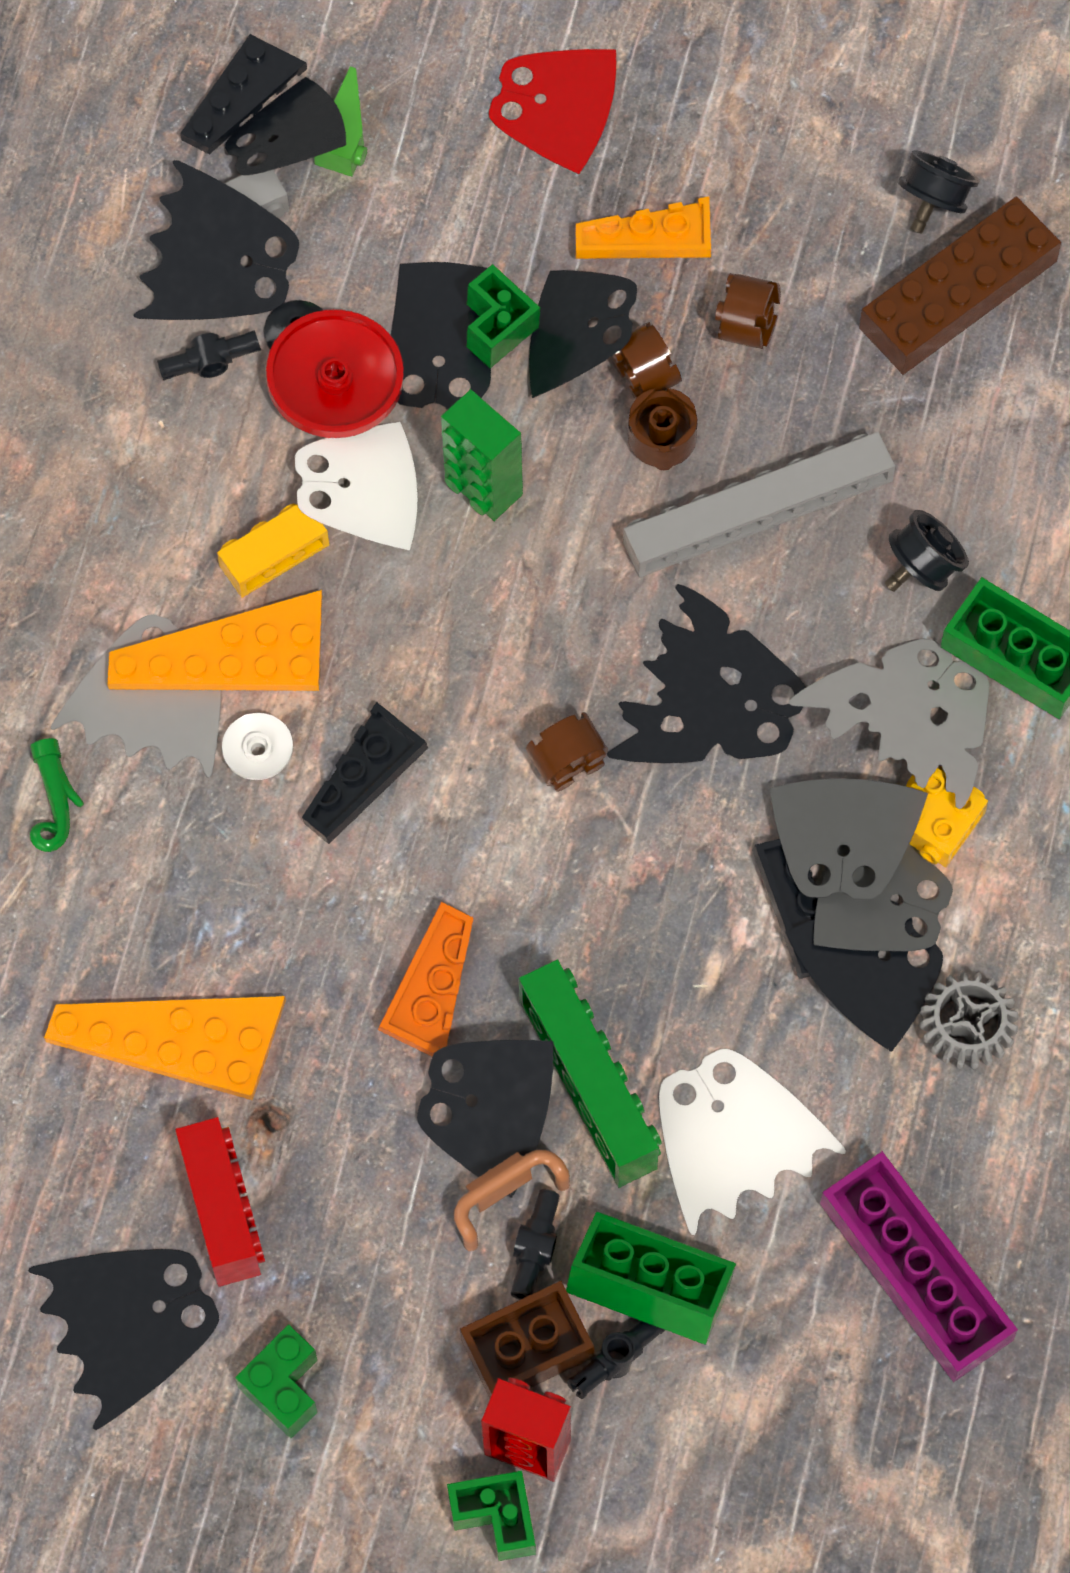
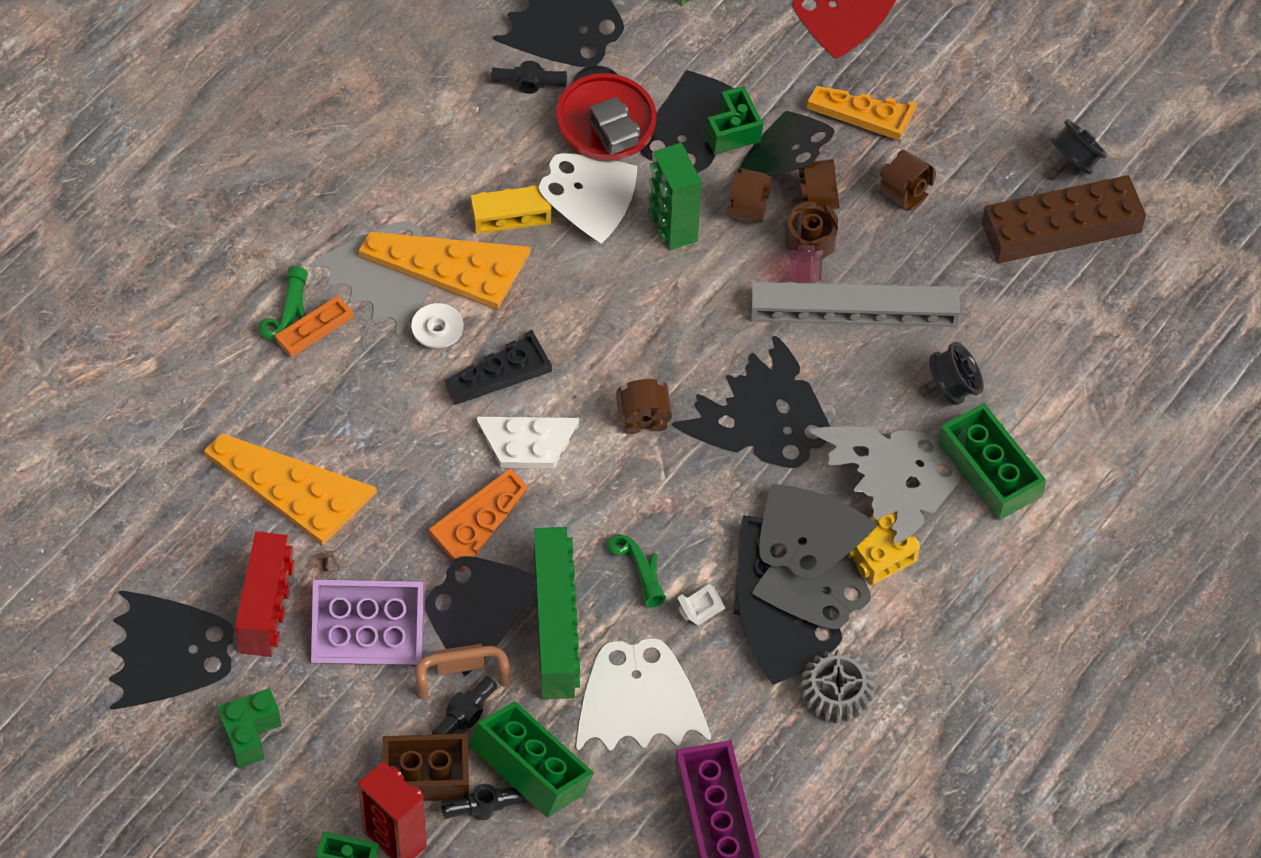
camera: 20 degrees right, 10 degrees down
(101, 810) = (314, 326): none -> orange plate
(355, 385) = (613, 125): none -> dark grey brick
(361, 1179) = (367, 622): none -> lavender slope
(440, 853) = (527, 440): none -> white wing
(564, 411) = (748, 195): none -> reddish brown brick
(678, 477) = (806, 264): none -> clear pink brick
(690, 992) = (647, 571): none -> green plant
(757, 984) = (701, 605): none -> white bracket

